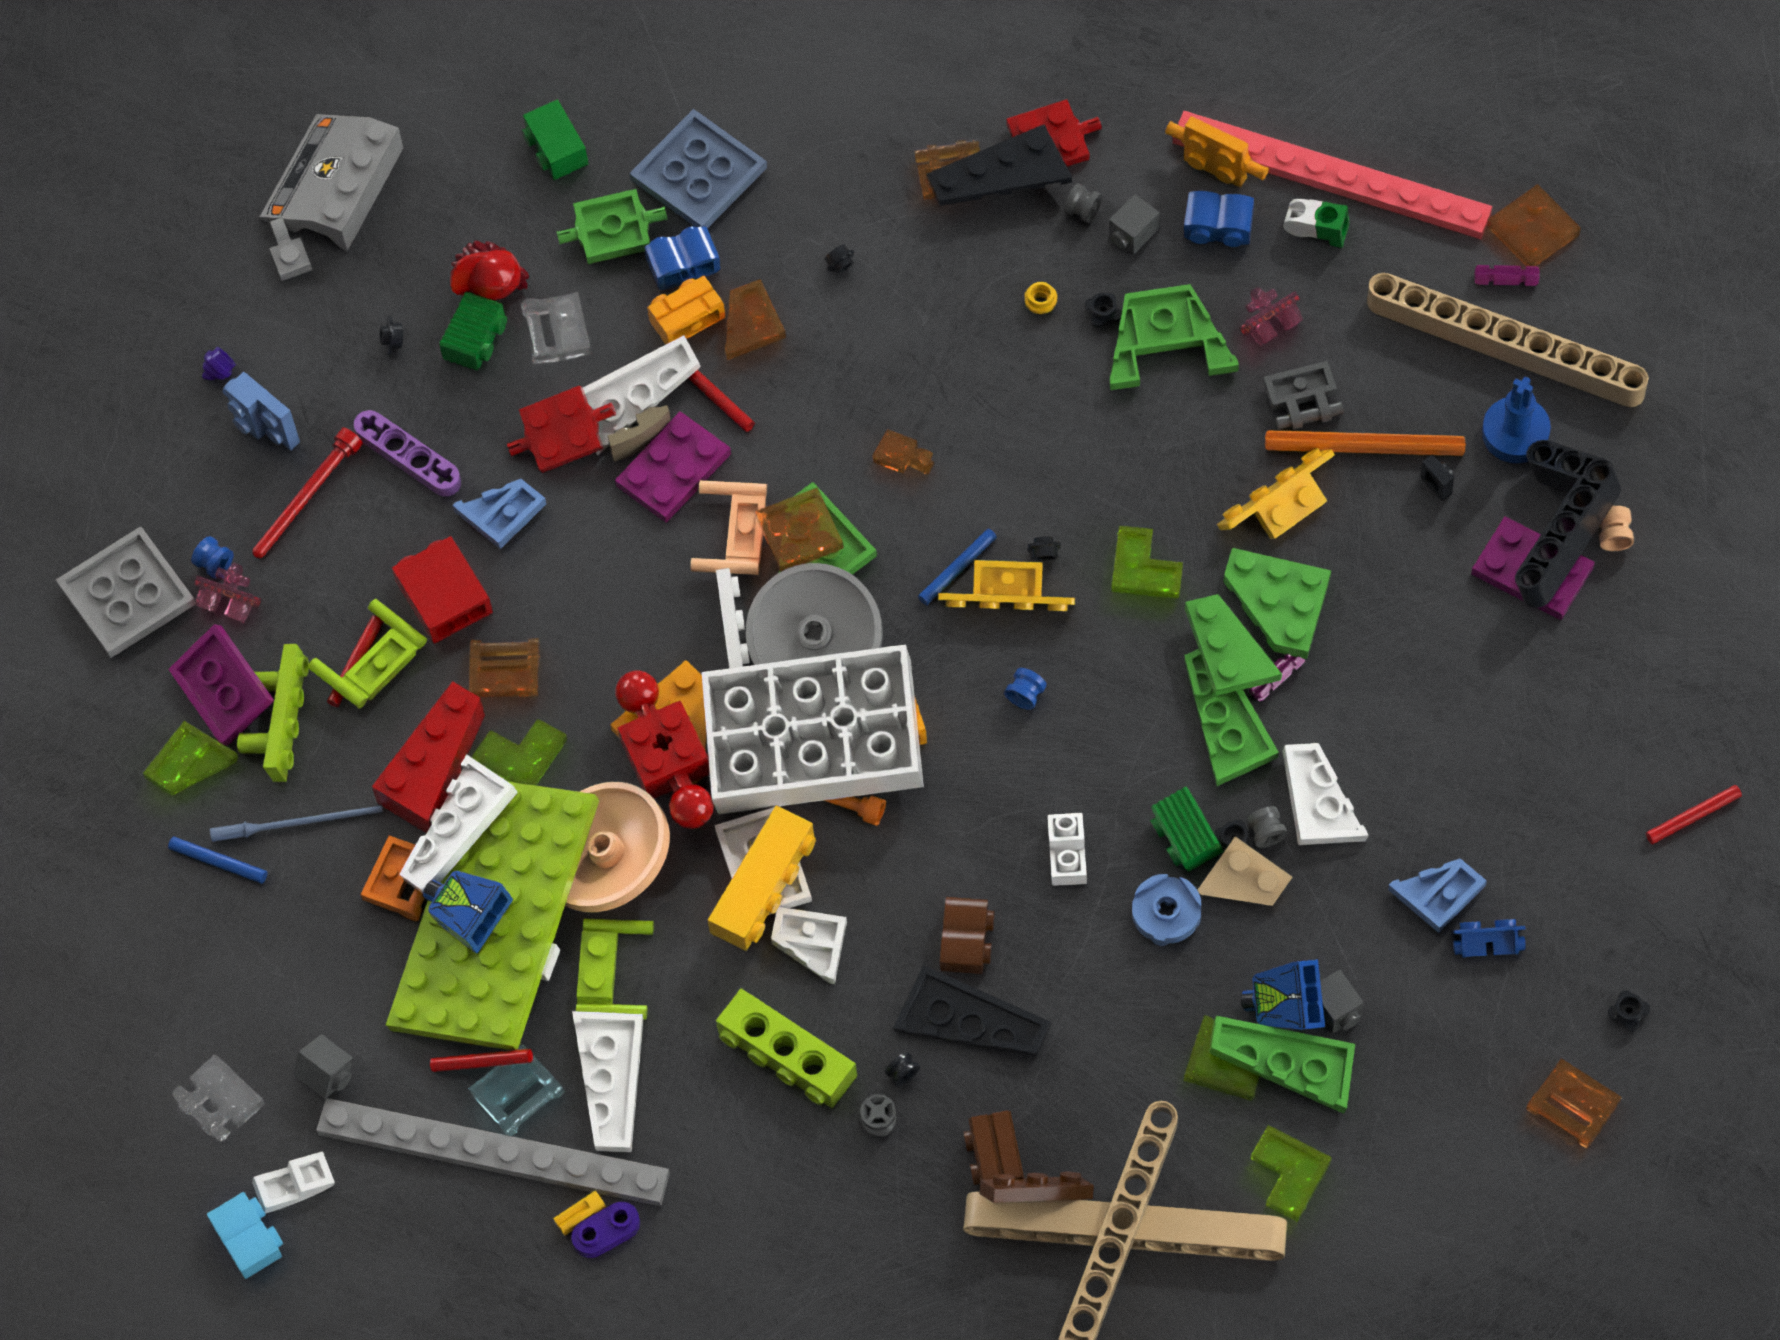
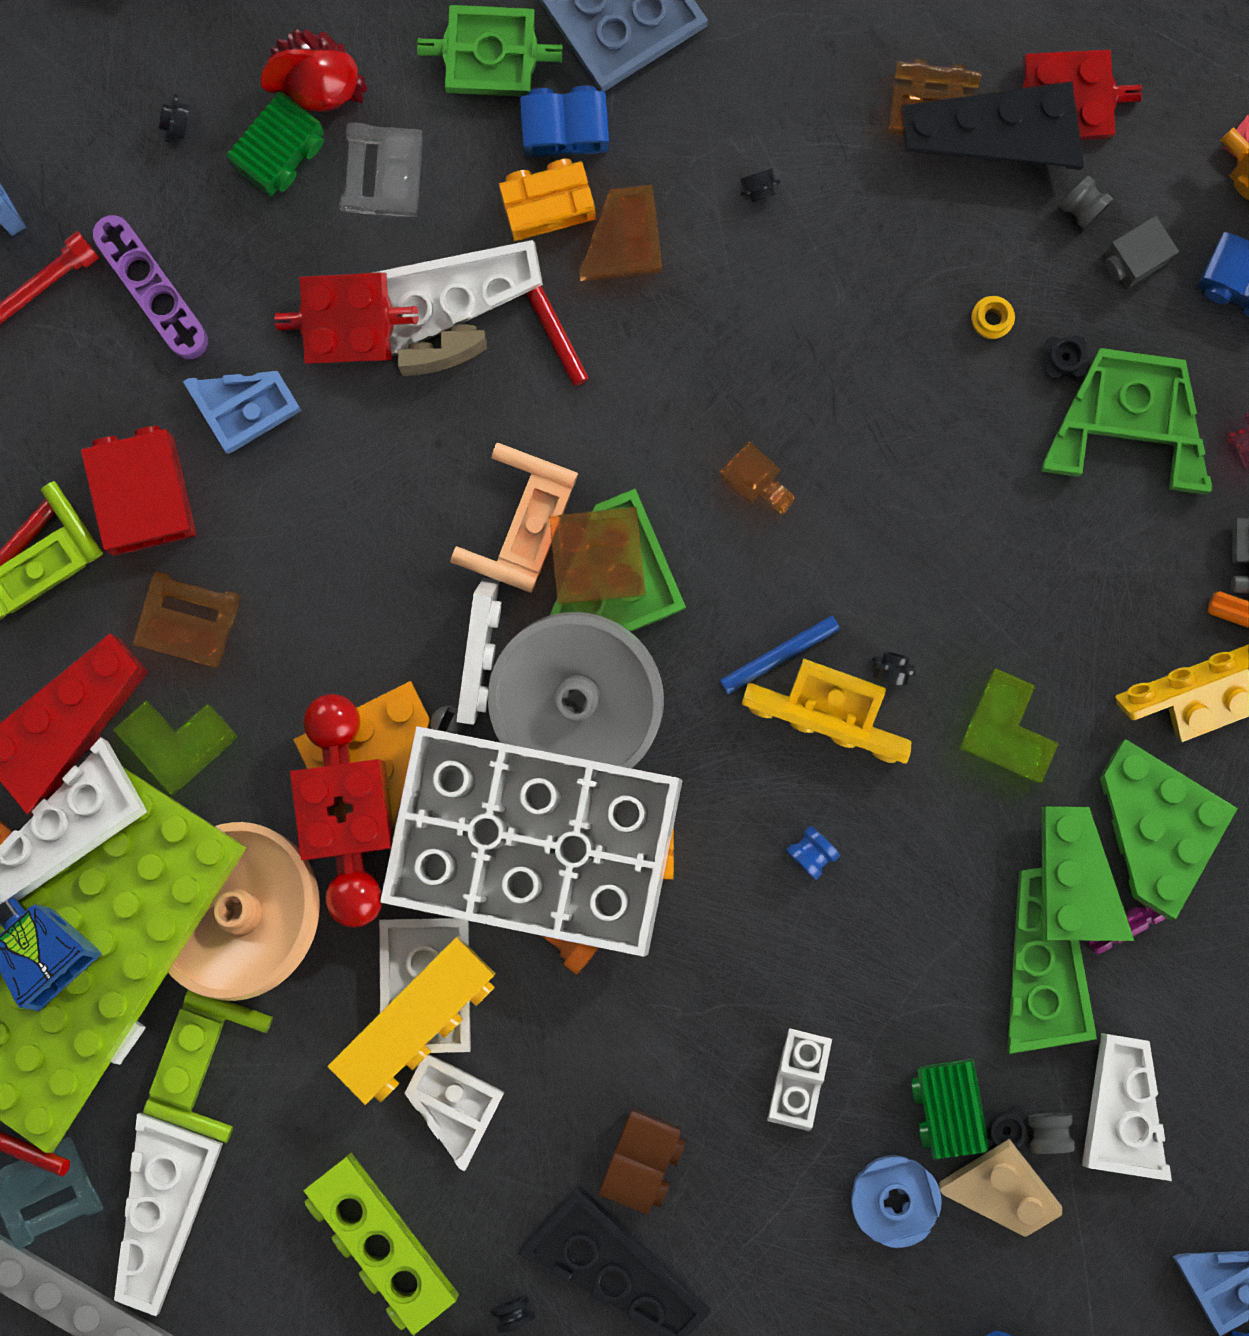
camera: 10 degrees right, 20 degrees up
(672, 466) = (471, 407): magenta plate -> none

